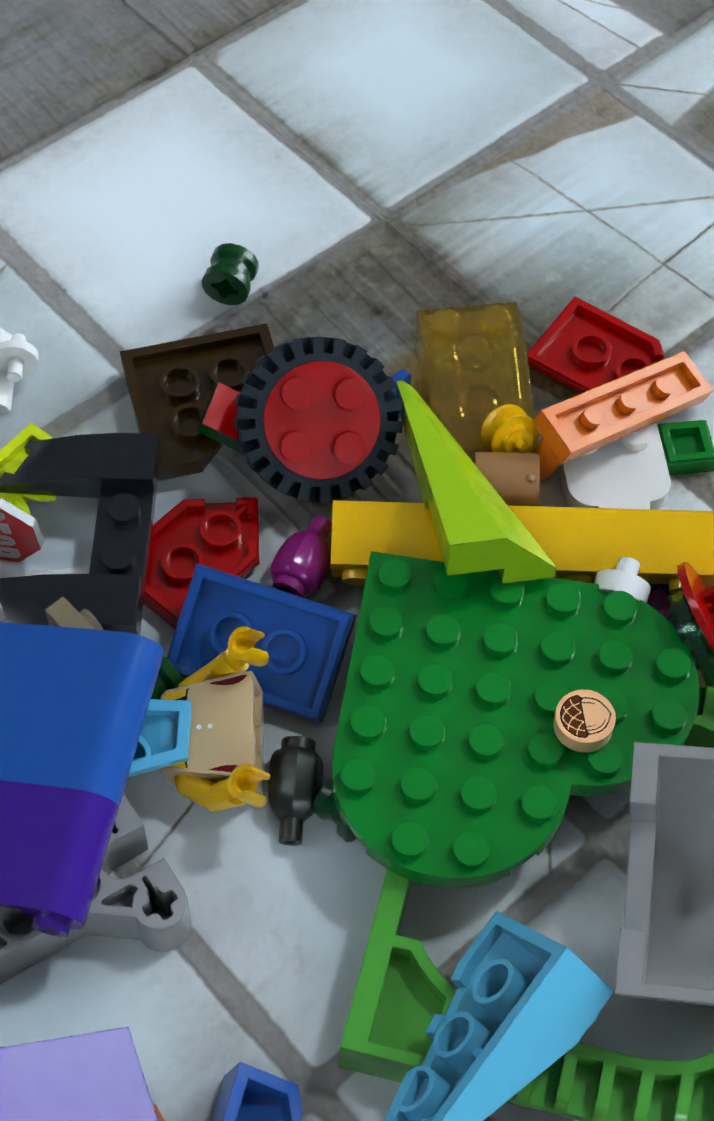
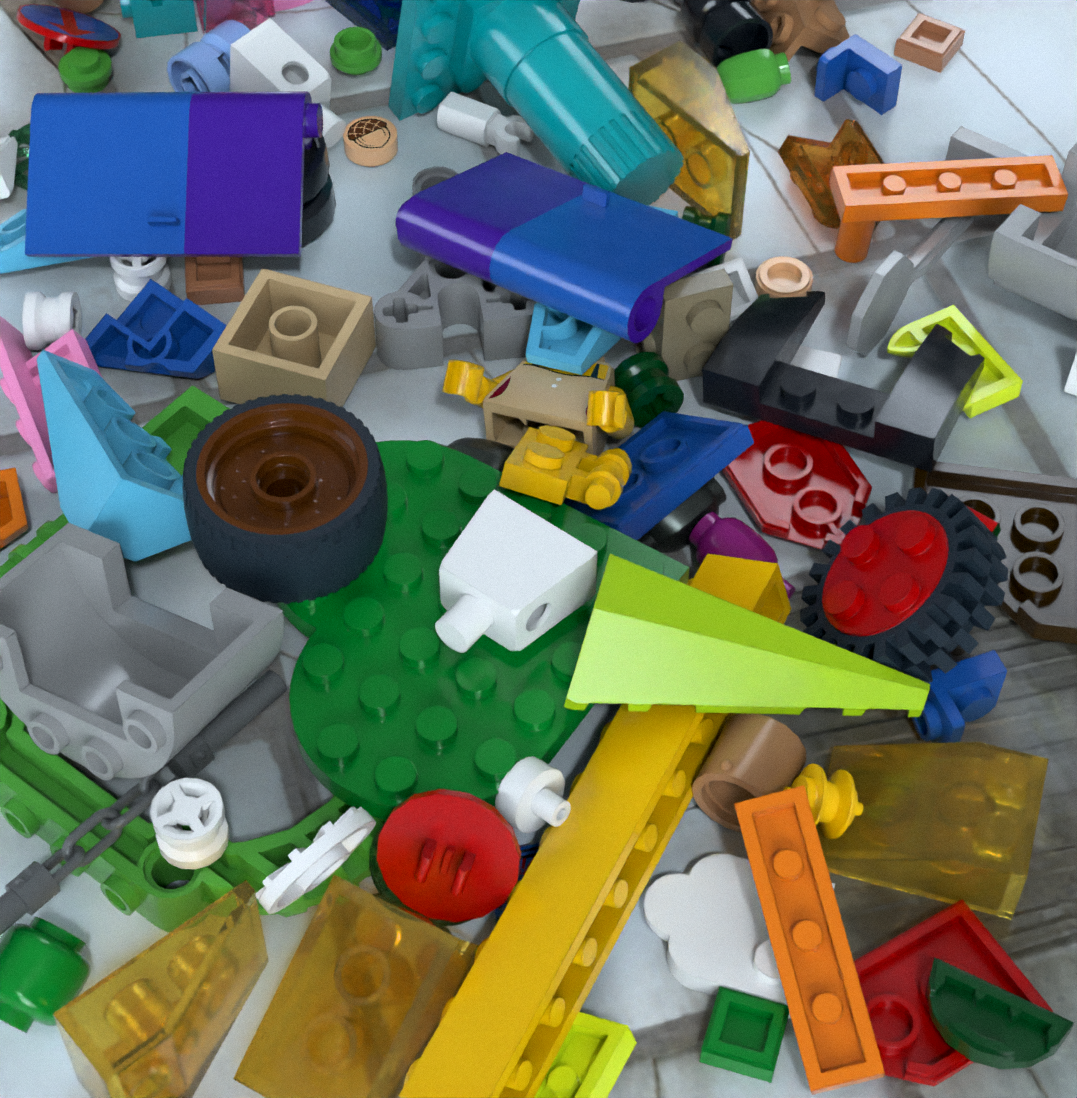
camera: 115 degrees right, 5 degrees down
(239, 985) = (294, 341): none -> tan brick
(320, 684) = (557, 467): none -> yellow plate
(478, 636) = (511, 577): none -> white torso
(509, 777) = (285, 498): none -> wheel
(584, 721) = (366, 644): light nougat tile -> none
(610, 317) = (991, 1022): none -> dark green tile

